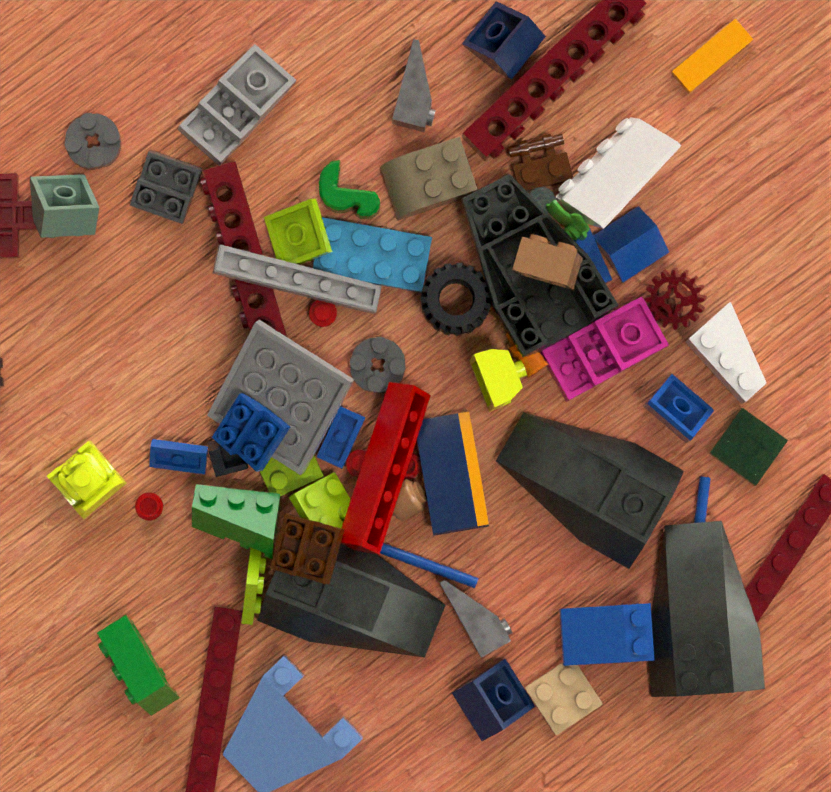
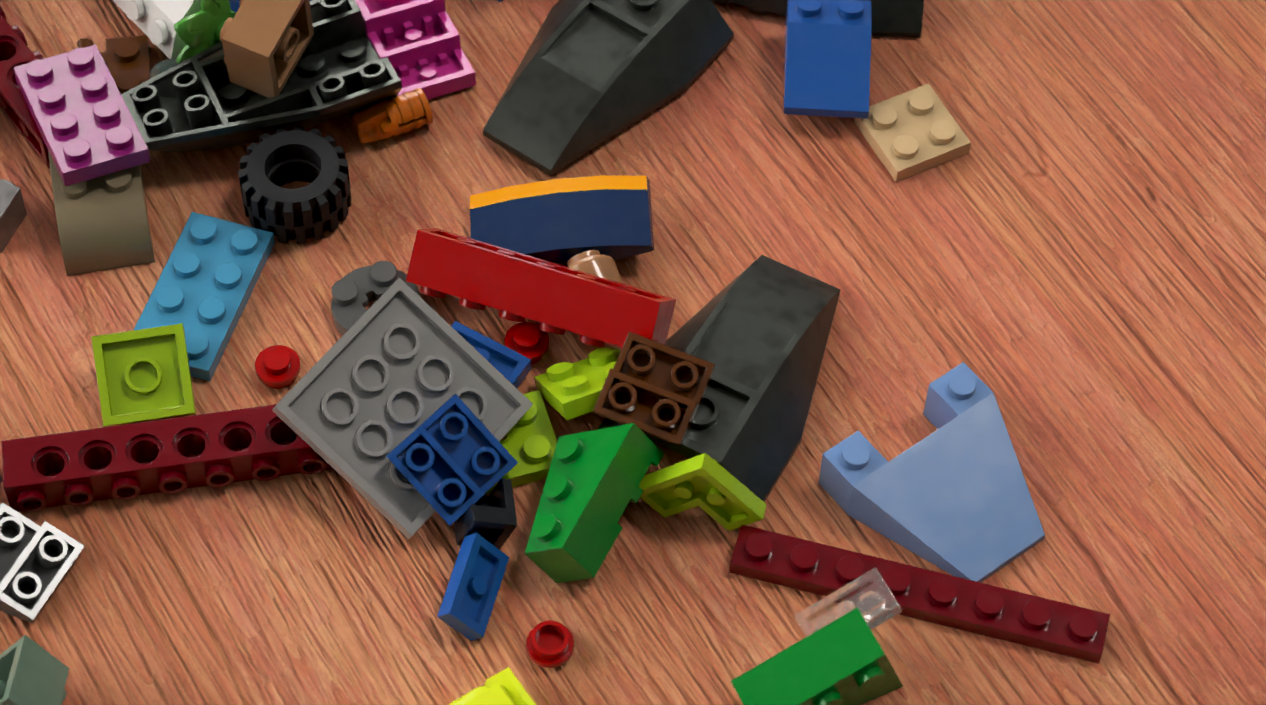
camera: 80 degrees left, 30 degrees down
(184, 679) = (866, 592): none -> clear plate
(296, 279) = (214, 382): light grey tile -> none
(343, 199) = (114, 288): green animal -> none
(429, 565) = (703, 267): blue bar -> none
(478, 154) = (81, 115): none -> plate
(481, 624) = (793, 214): flat silver slope -> none
(493, 700) = (915, 211): dark blue slope -> none
(497, 376) = (427, 142): neon yellow brick -> none

